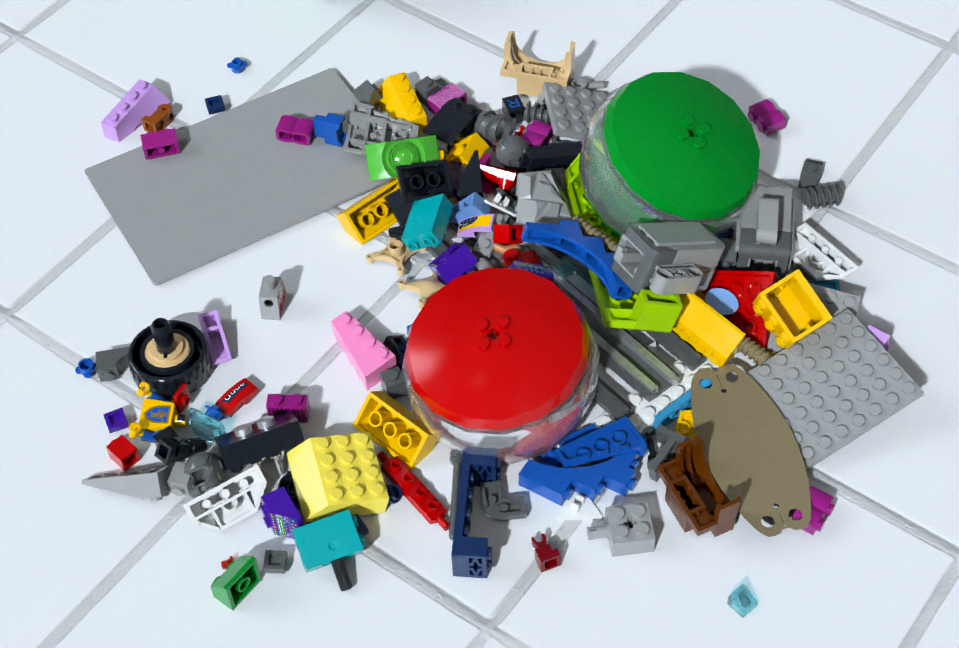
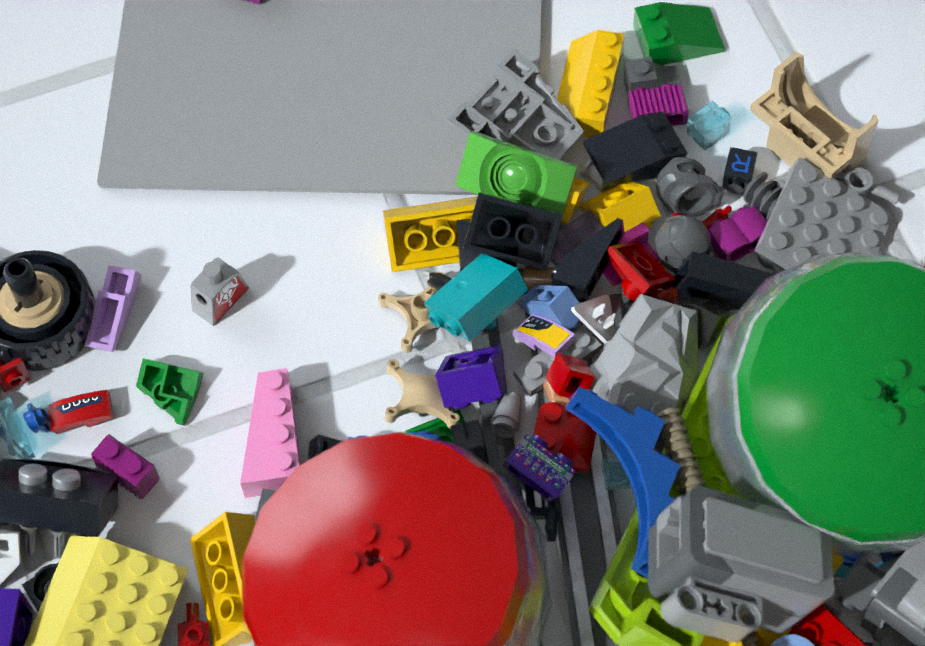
camera: 35 degrees right, 10 degrees up
(280, 359) = (170, 387): none -> green slope
(295, 130) = (421, 48): magenta brick -> none
(330, 128) = (463, 72): blue piece -> none
(368, 94) = (552, 47): dark grey arch -> none
(427, 61) = (676, 32): none -> green slope
(481, 95) = (709, 125): none -> clear light blue brick

